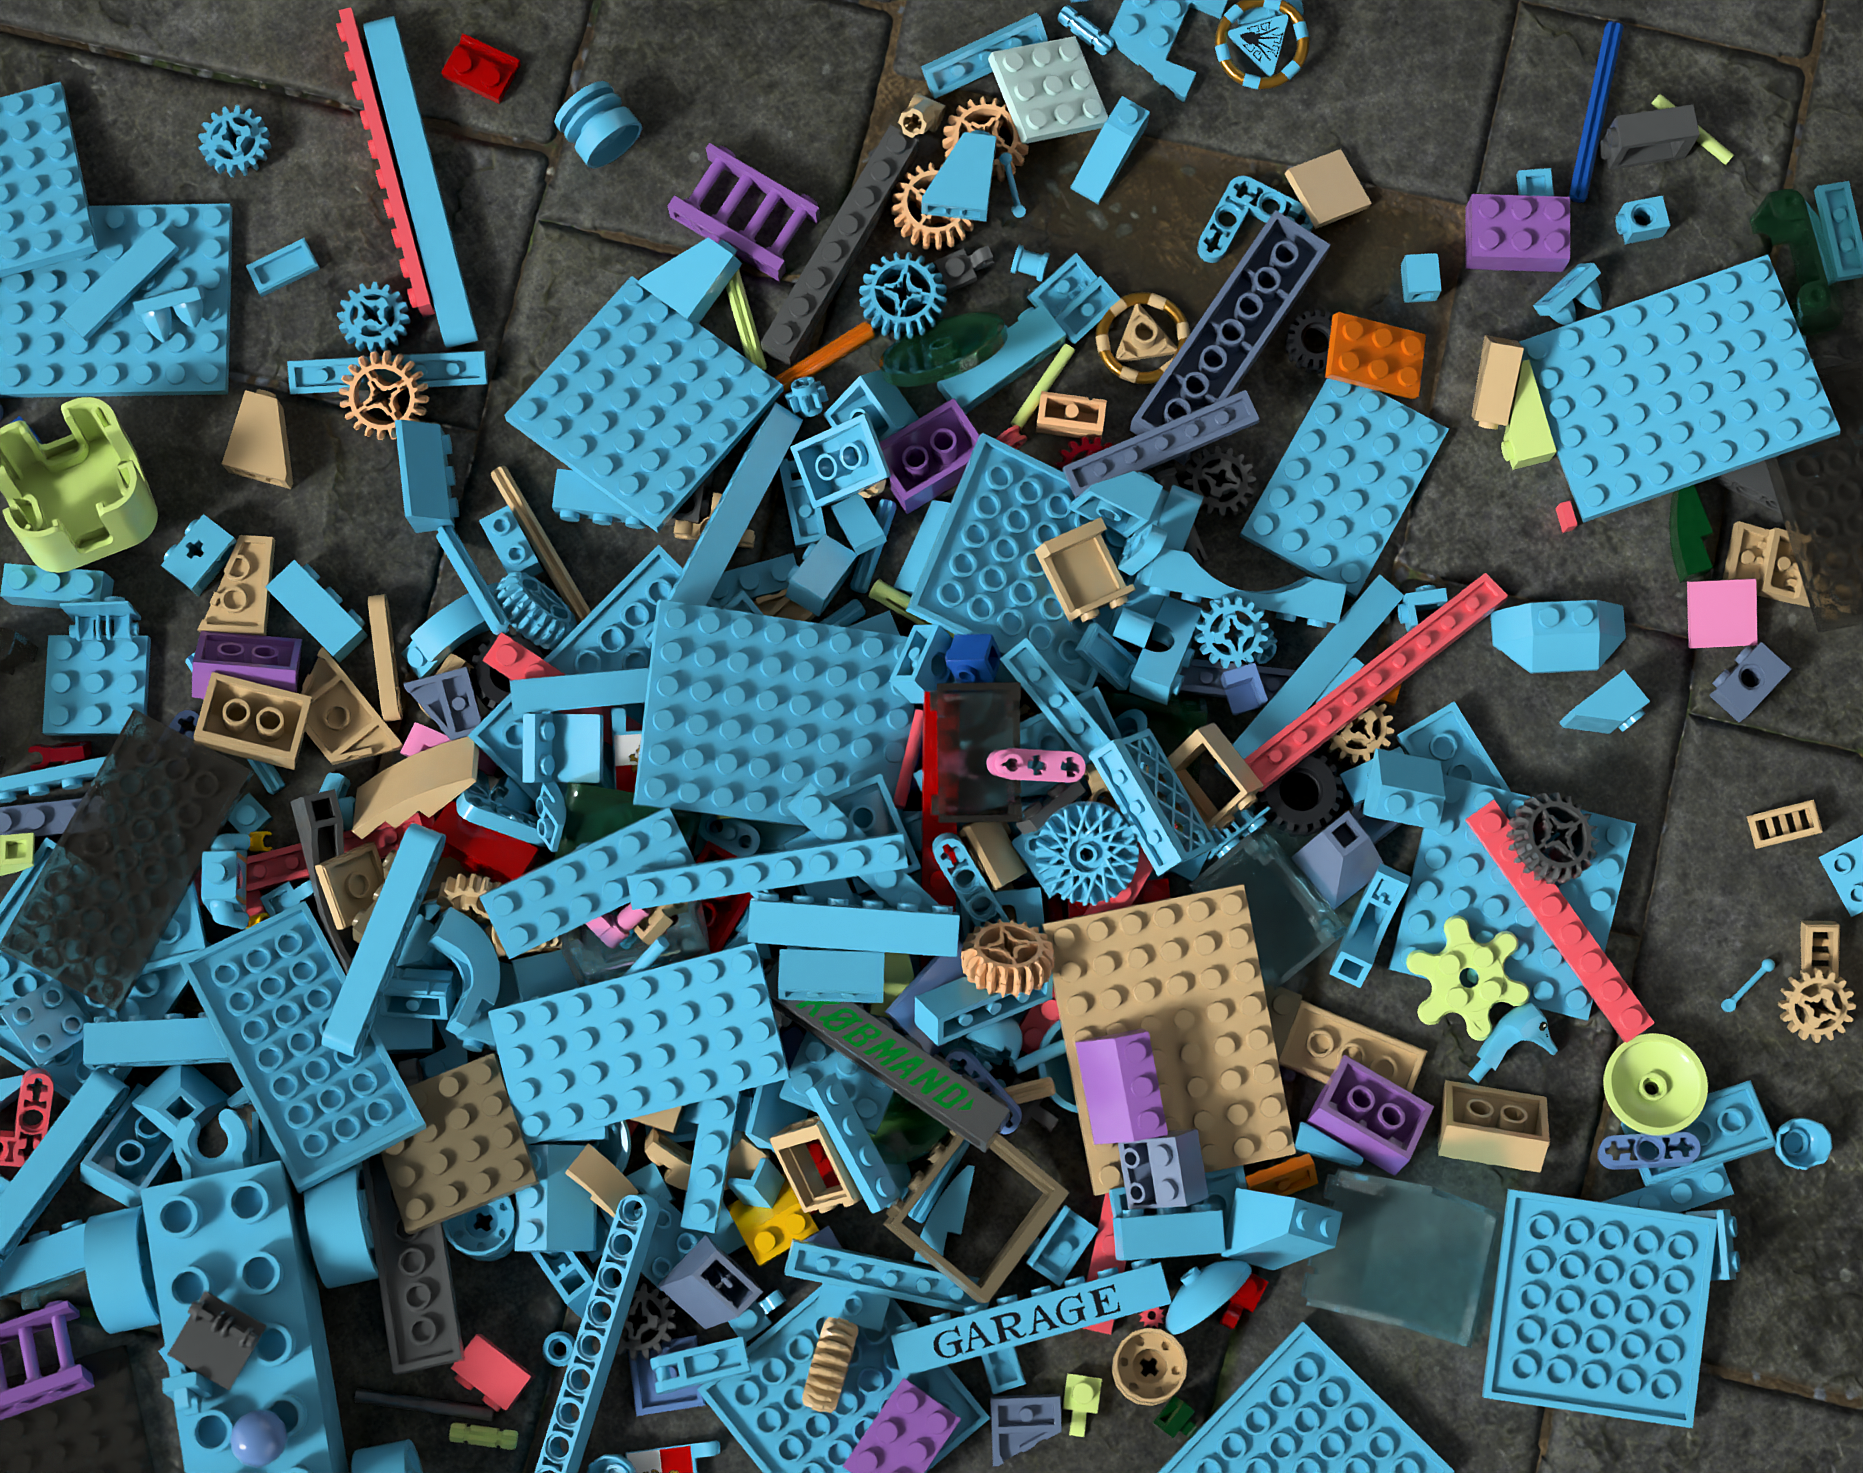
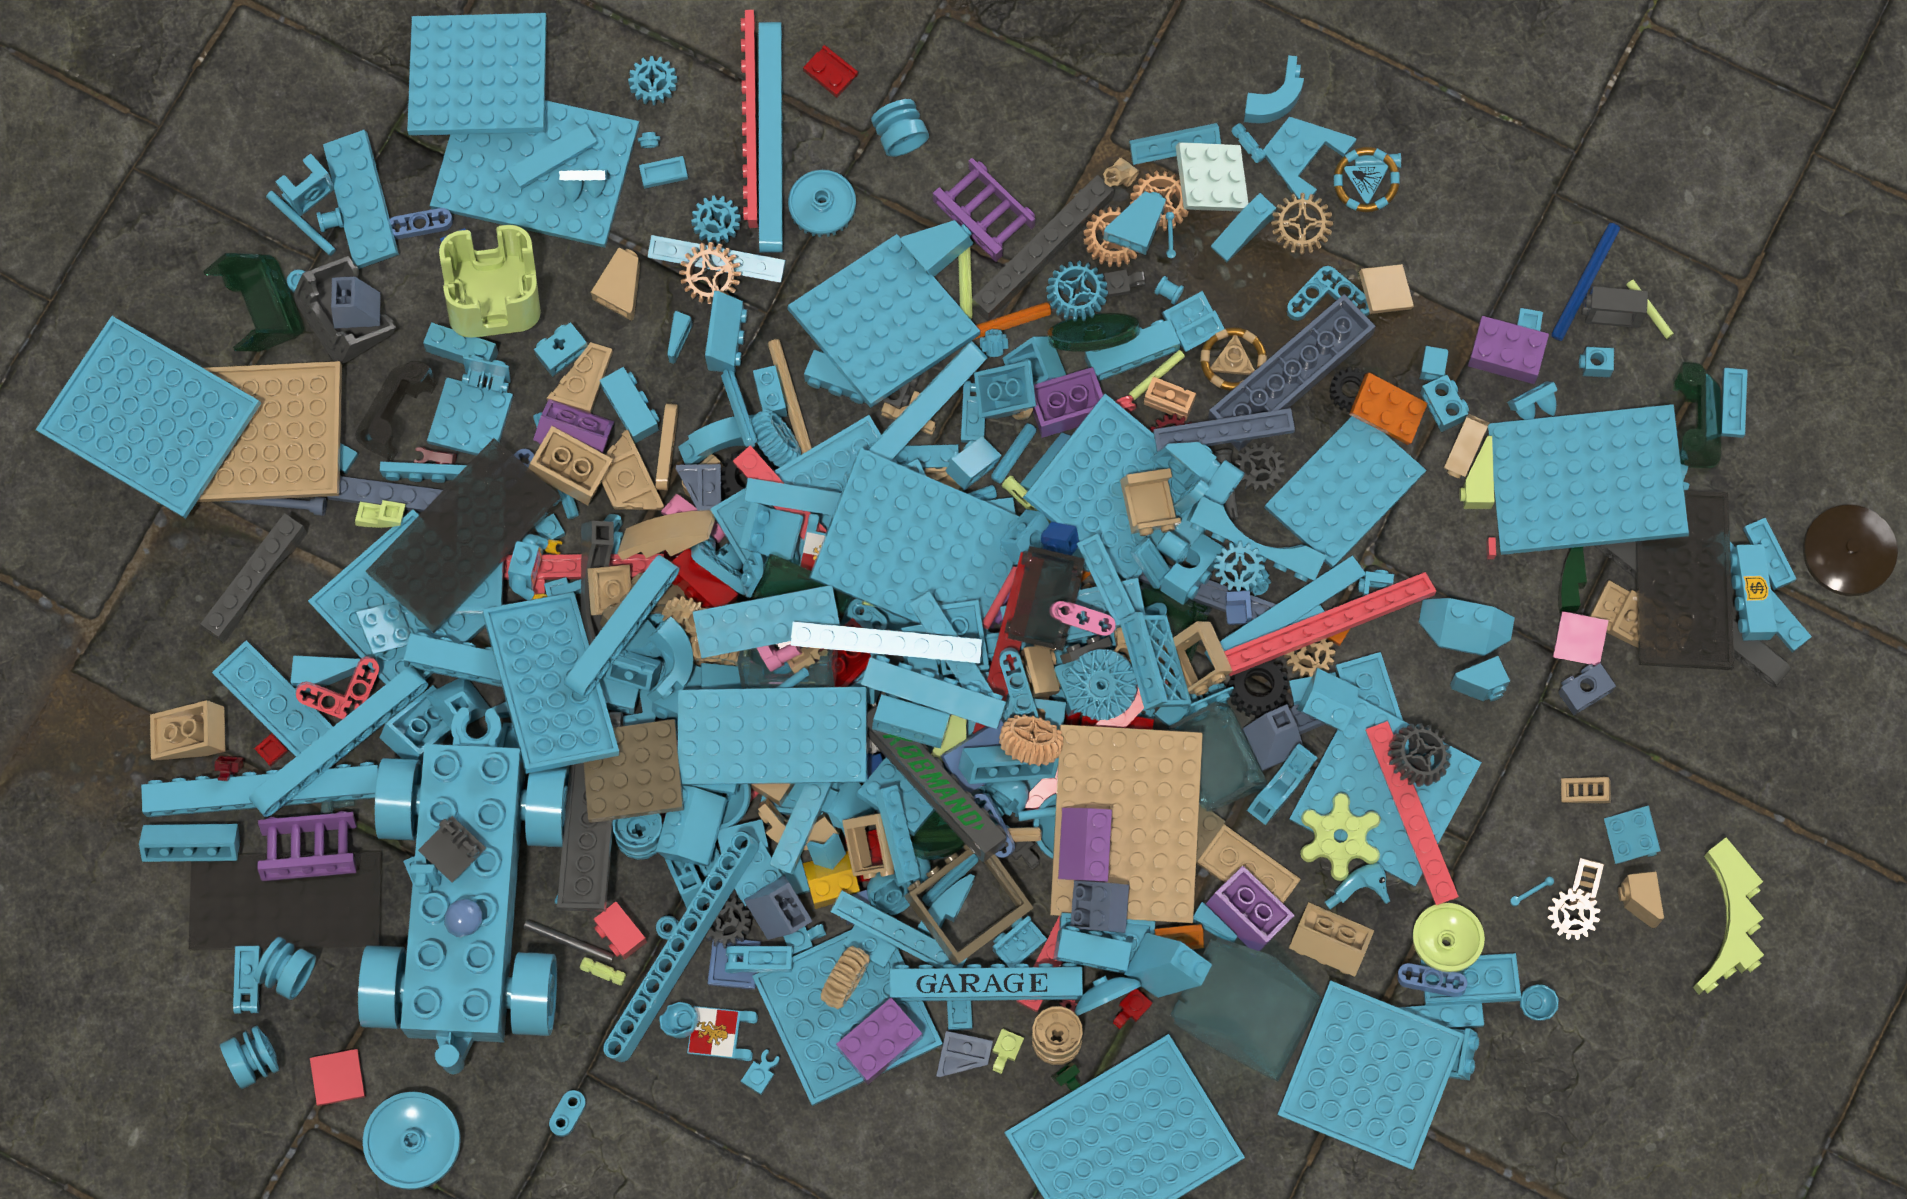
camera: 15 degrees right, 5 degrees down
(251, 227) = (649, 140): none -> medium azure plate
(362, 489) = (679, 332): none -> medium azure slope
(521, 277) = (826, 216): none -> medium azure wheel
(600, 1179) = (723, 817): tan slope -> none
(857, 1227) = (887, 894): none -> medium azure cylinder
(858, 524) = (1007, 435): medium azure tile -> none
(1204, 121) = (1291, 223): none -> tan gear
(1442, 333) = (1439, 404): none -> medium azure brick

